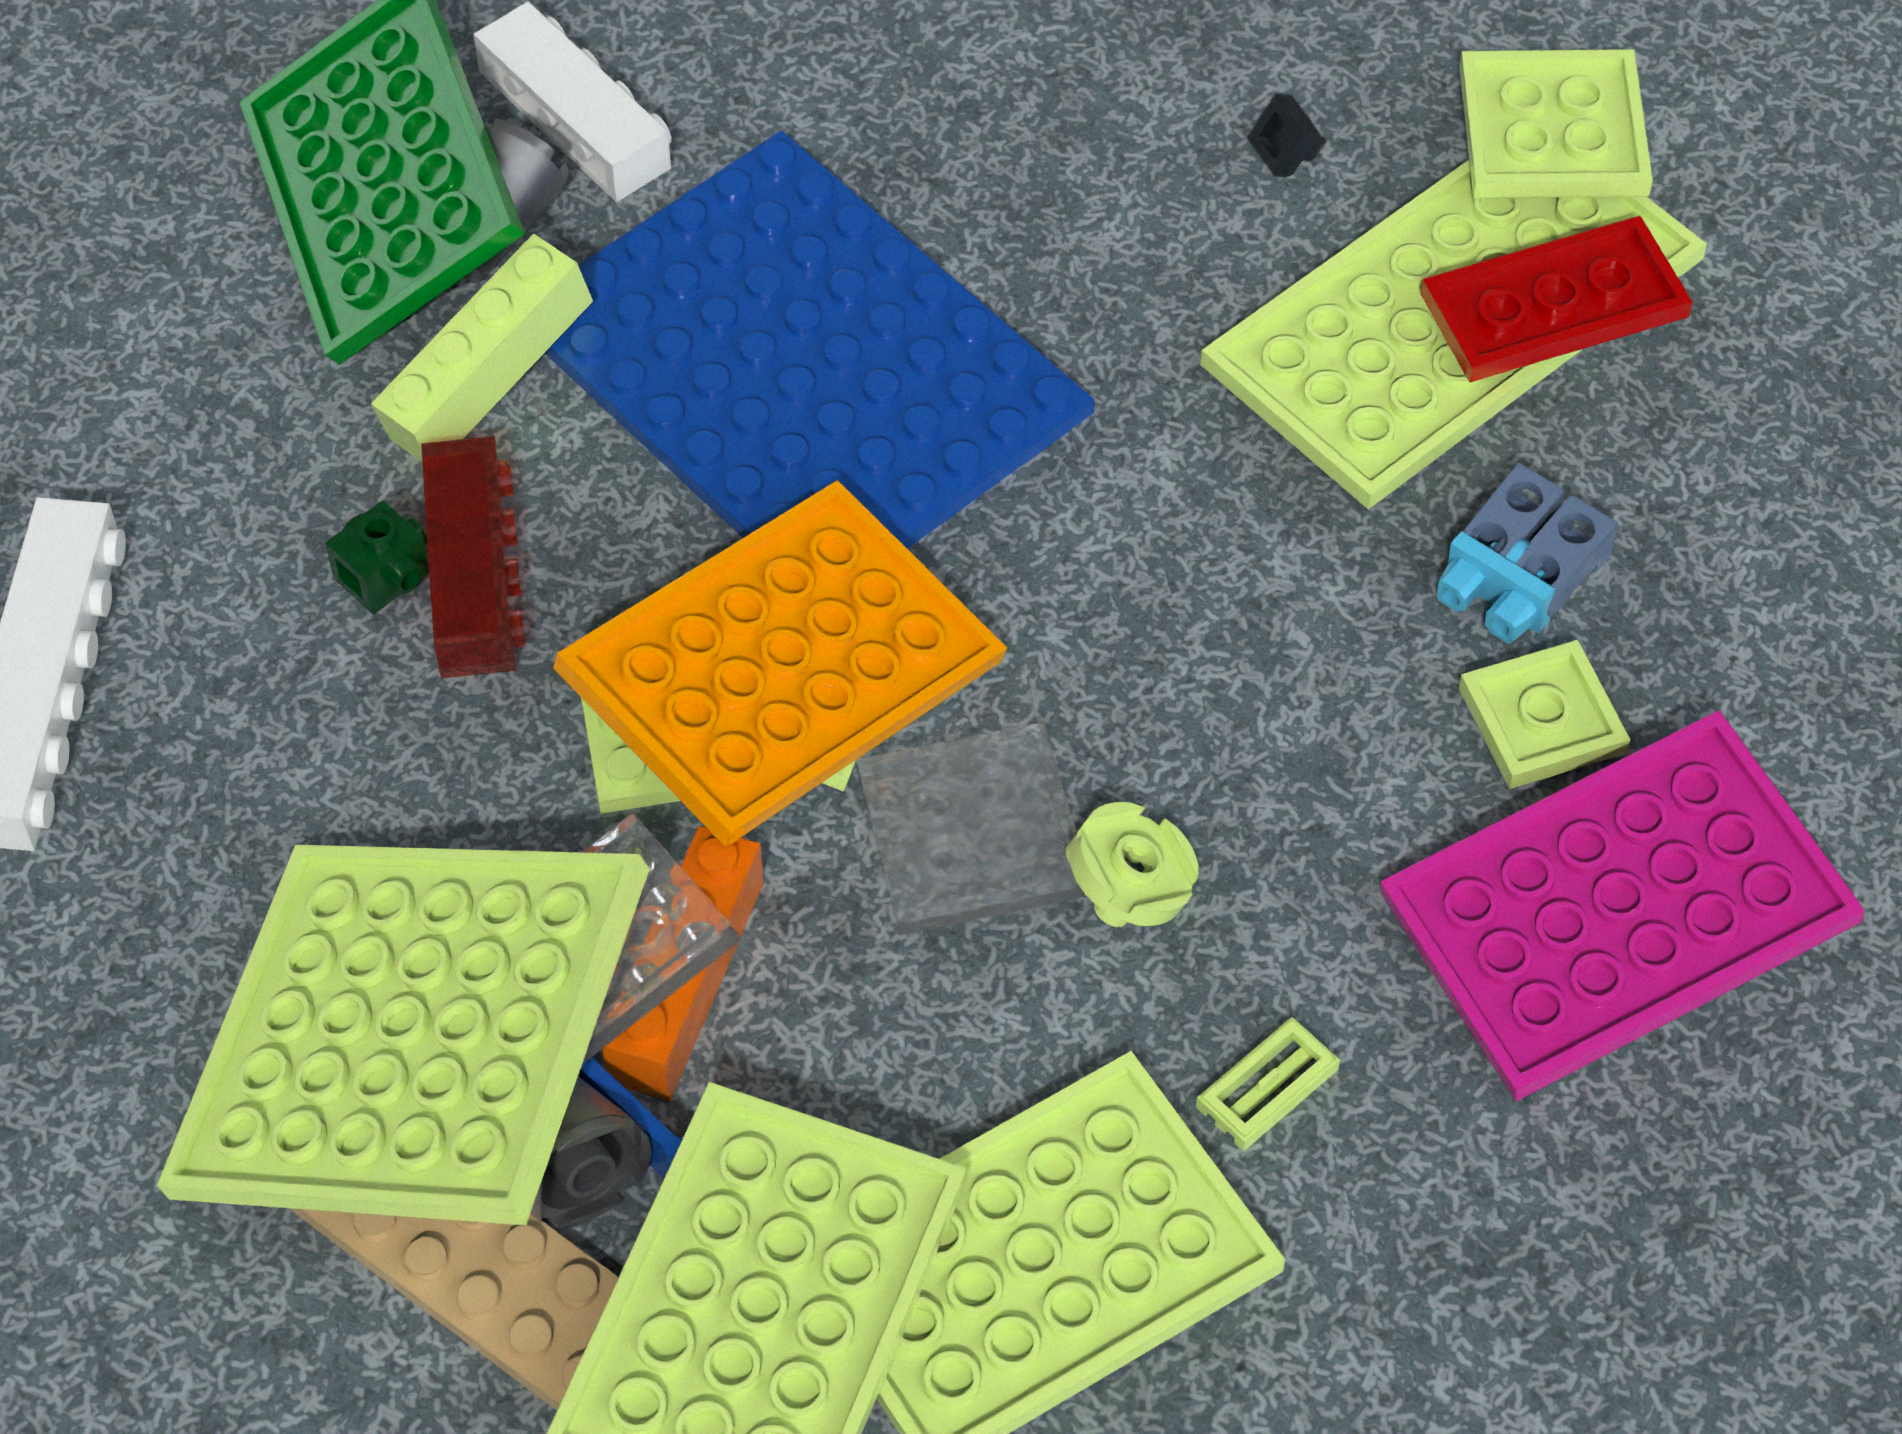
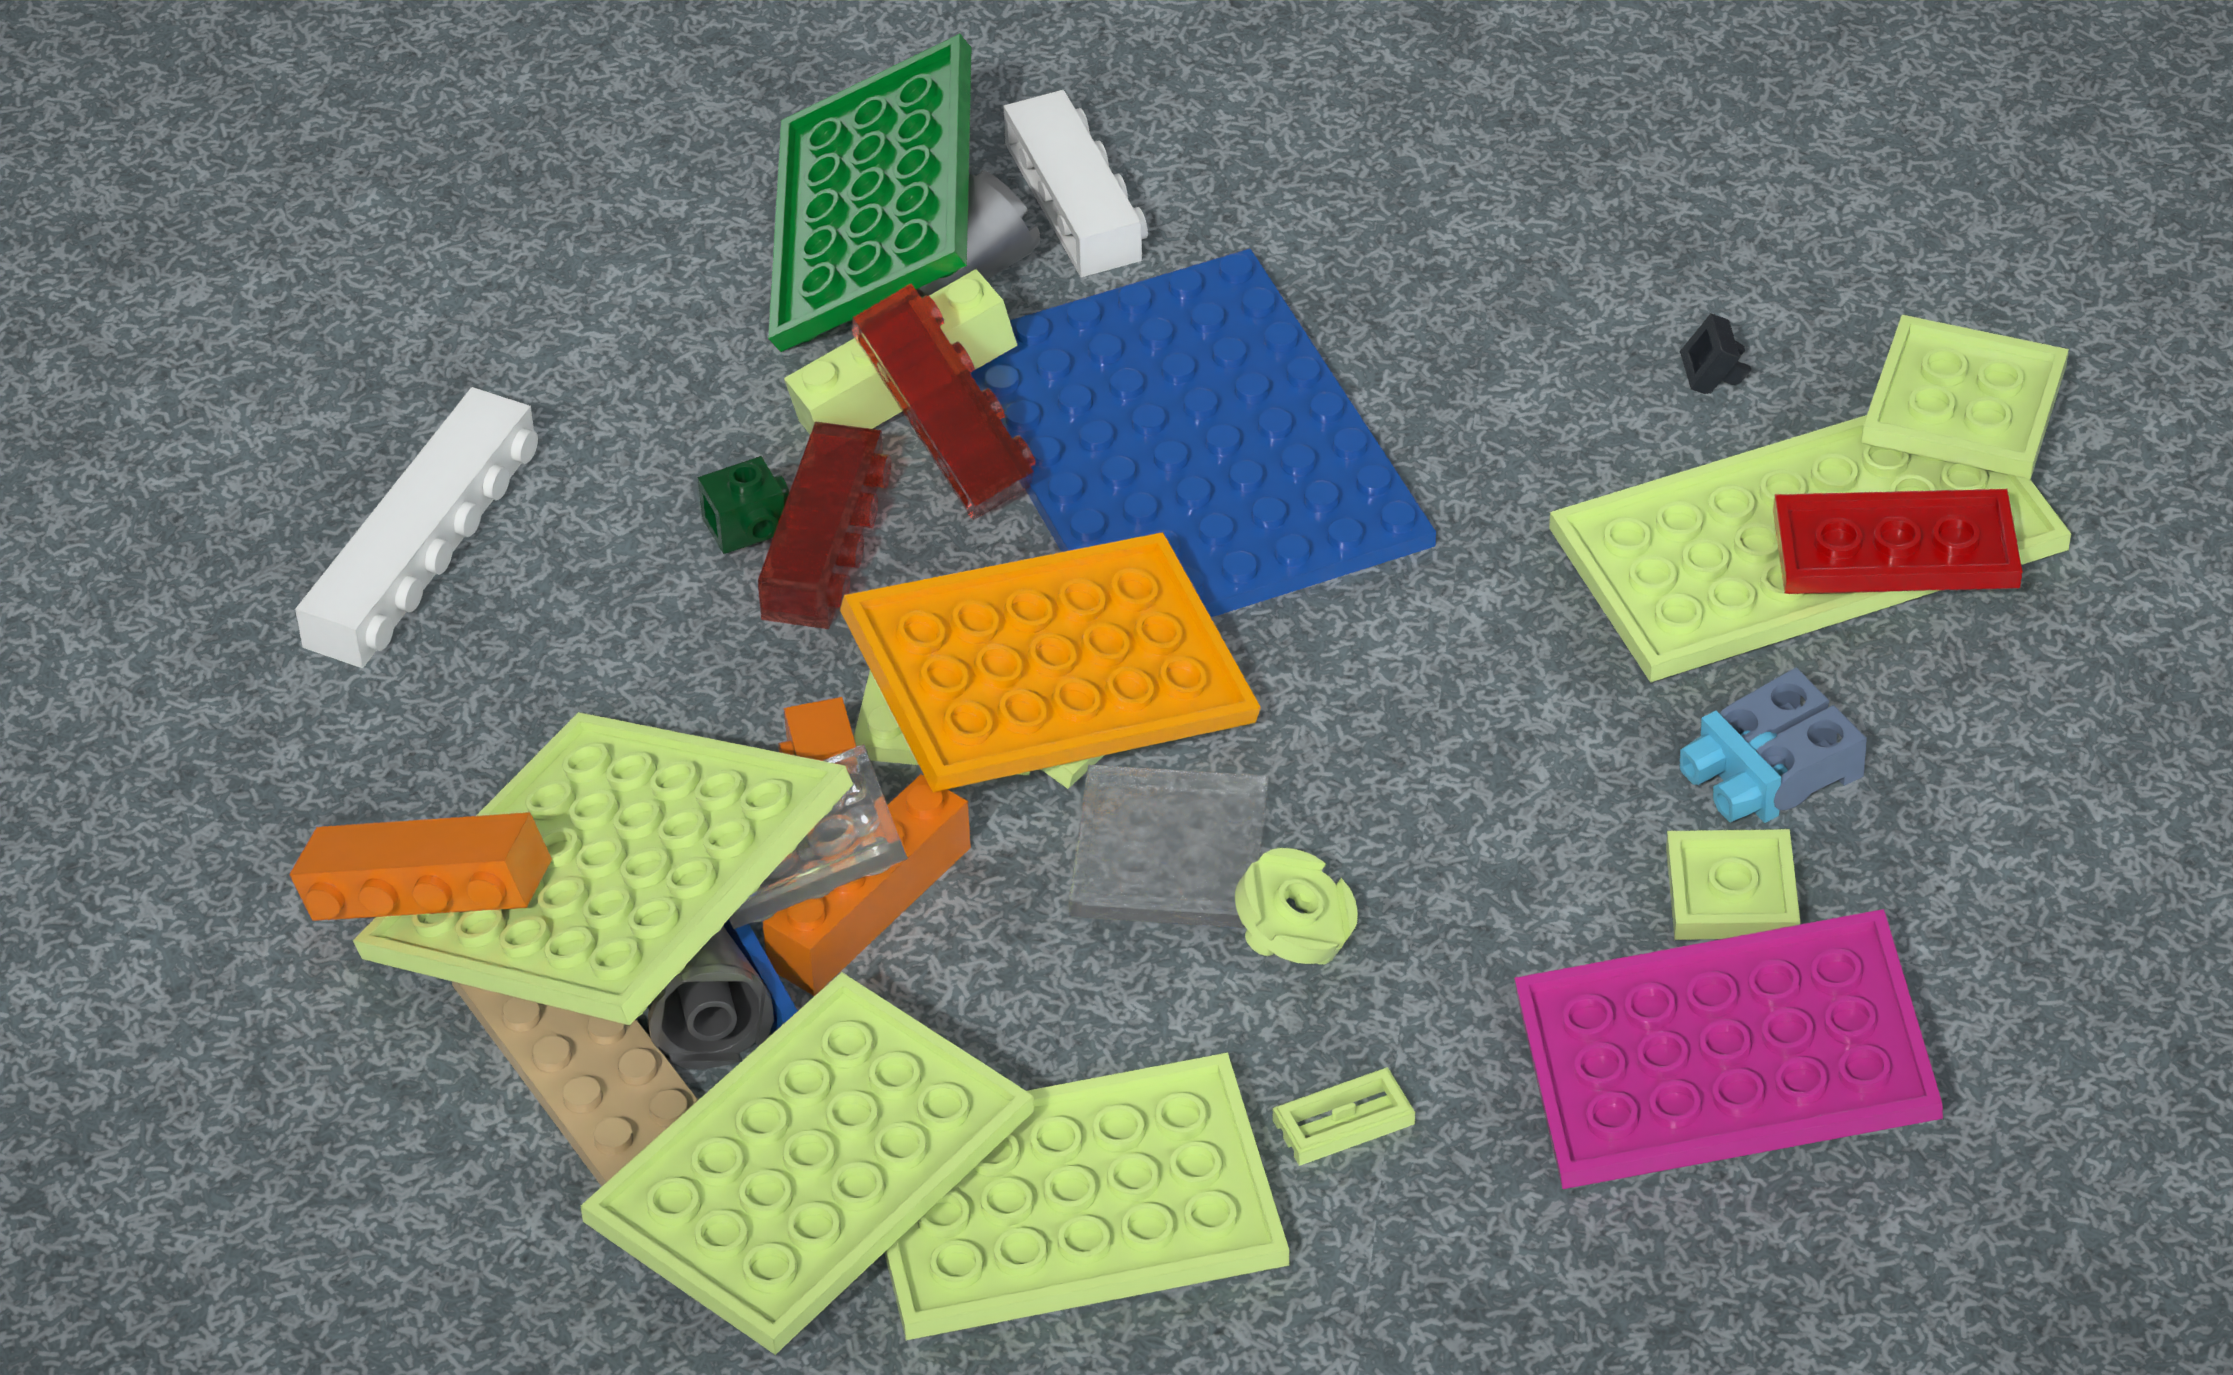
camera: 20 degrees right, 10 degrees down
(207, 1085) = (421, 866): none -> orange brick
(553, 389) = (943, 400): none -> clear red brick
(566, 809) = (817, 730): none -> orange brick

